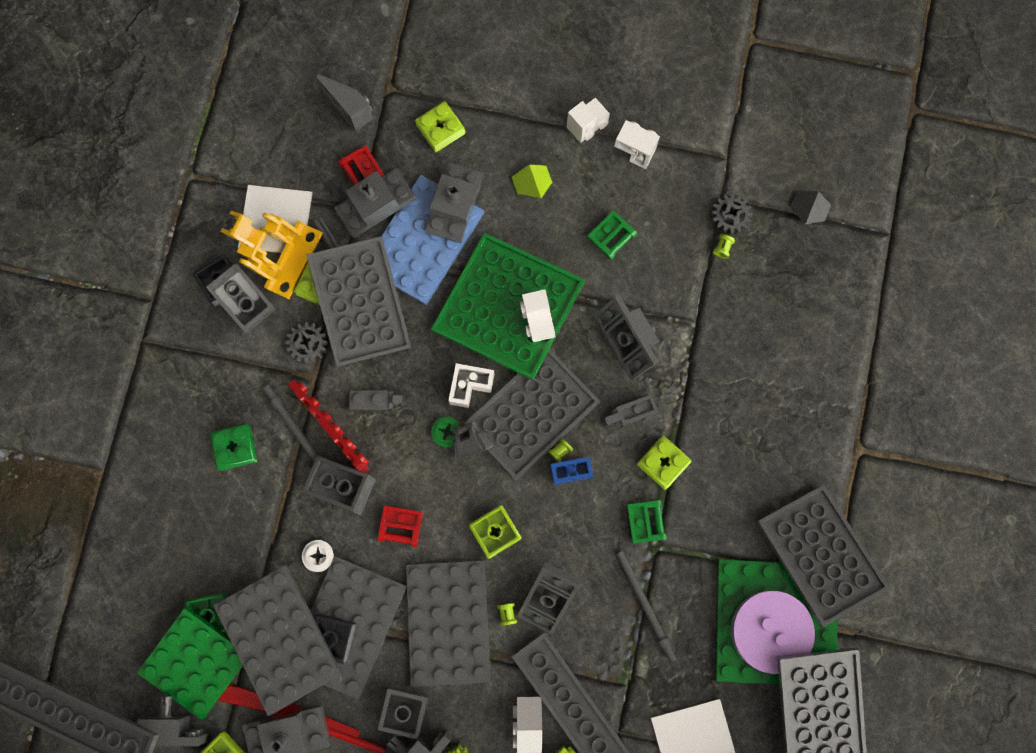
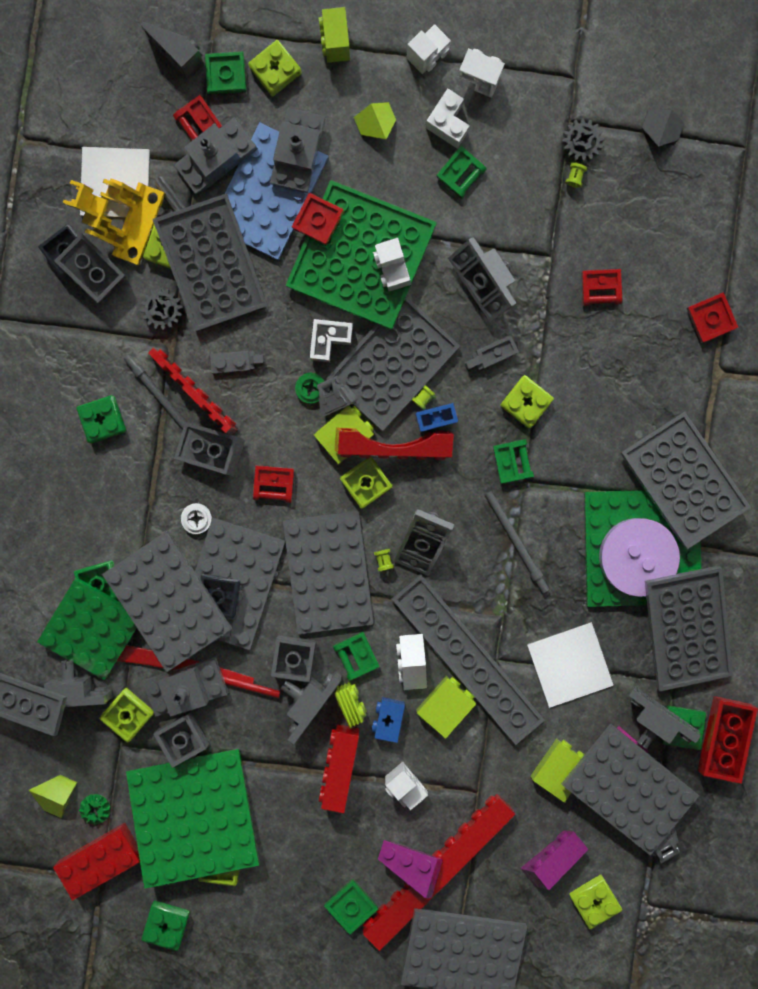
camera: 10 degrees left, 10 degrees up
(392, 127) = (225, 73): none -> green plate
(468, 267) = (317, 219): none -> red plate
(476, 713) = (362, 653): none -> green plate
(477, 480) = (347, 418): none -> lime brick
(499, 100) = (334, 34): none -> lime brick
(566, 497) = (433, 444): none -> red arch
(599, 187) = (444, 120): none -> white brick
(744, 349) = (601, 280): none -> red plate
(854, 393) = (712, 317): none -> red plate

